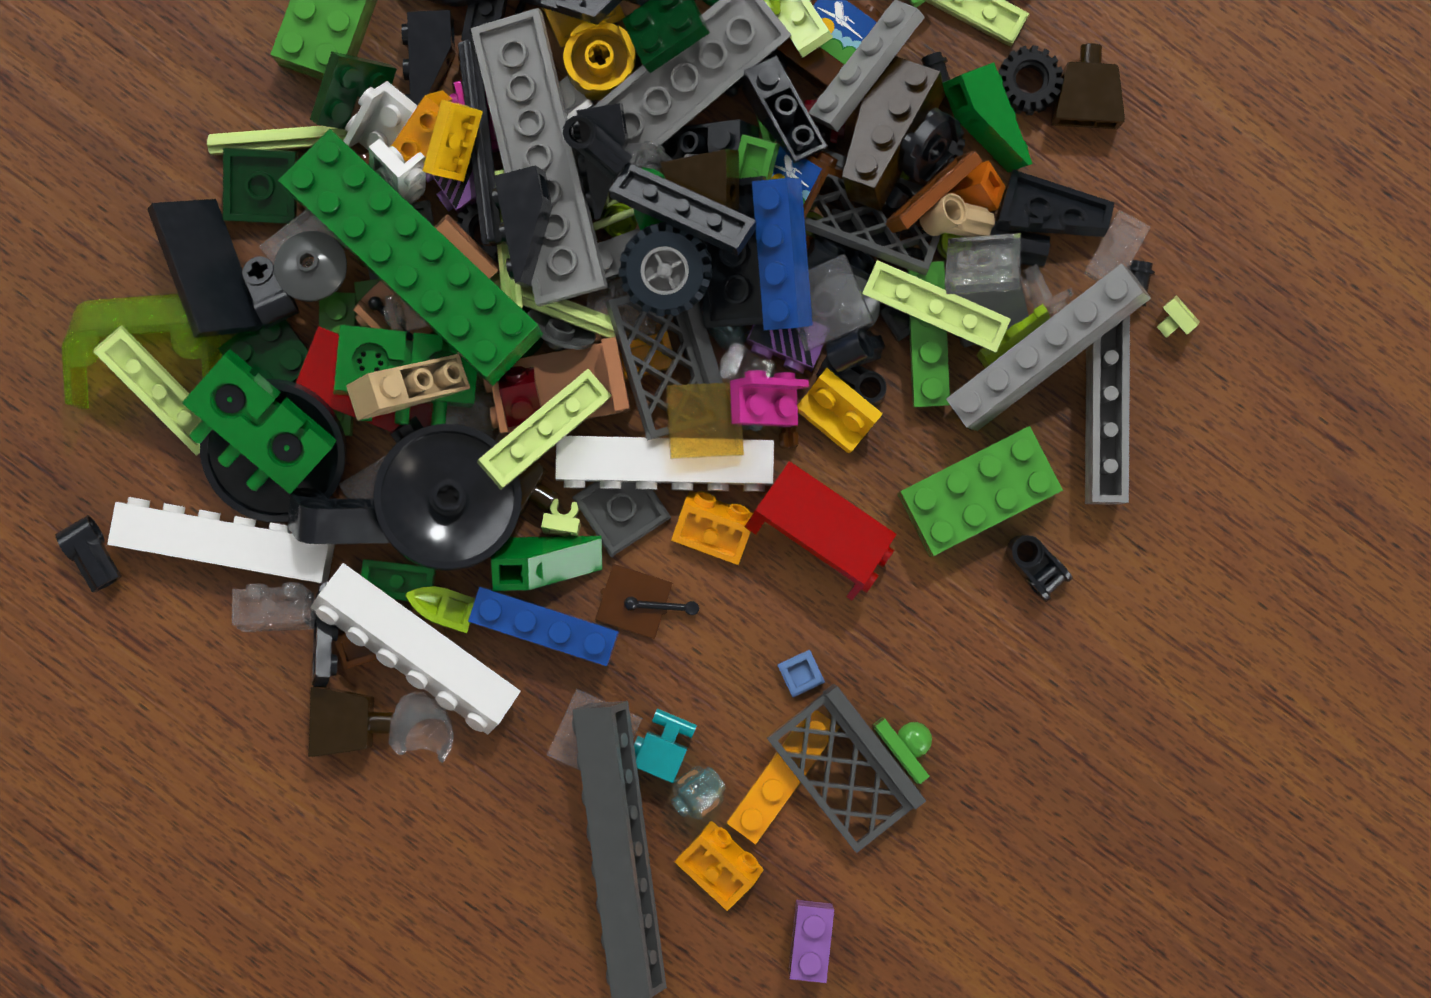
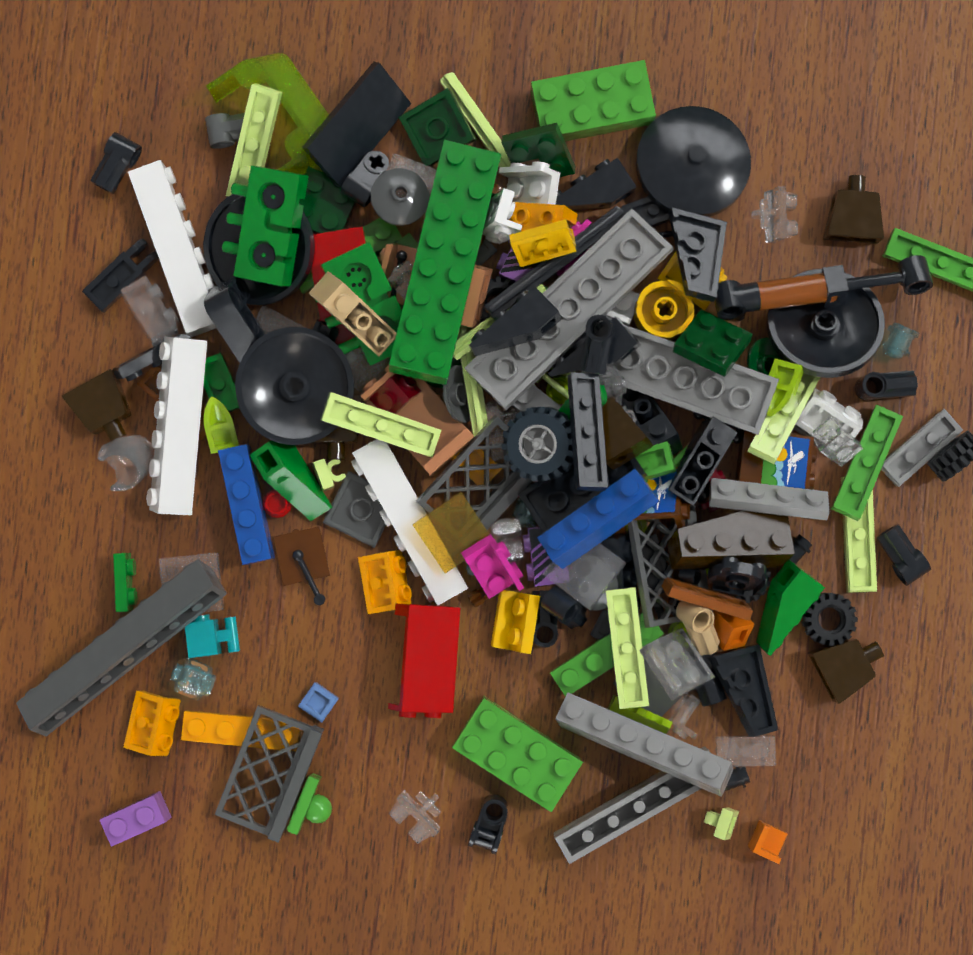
camera: 60 degrees right, 0 degrees up
(123, 414) = (223, 129): none -> dark grey piece
(214, 621) = (119, 274): none -> black hinge
(562, 595) = (276, 505): none -> red plate
(564, 813) = (124, 592): none -> green plate
(999, 635) = (425, 824): none -> clear hips
(1225, 283) = (767, 841): none -> orange panel

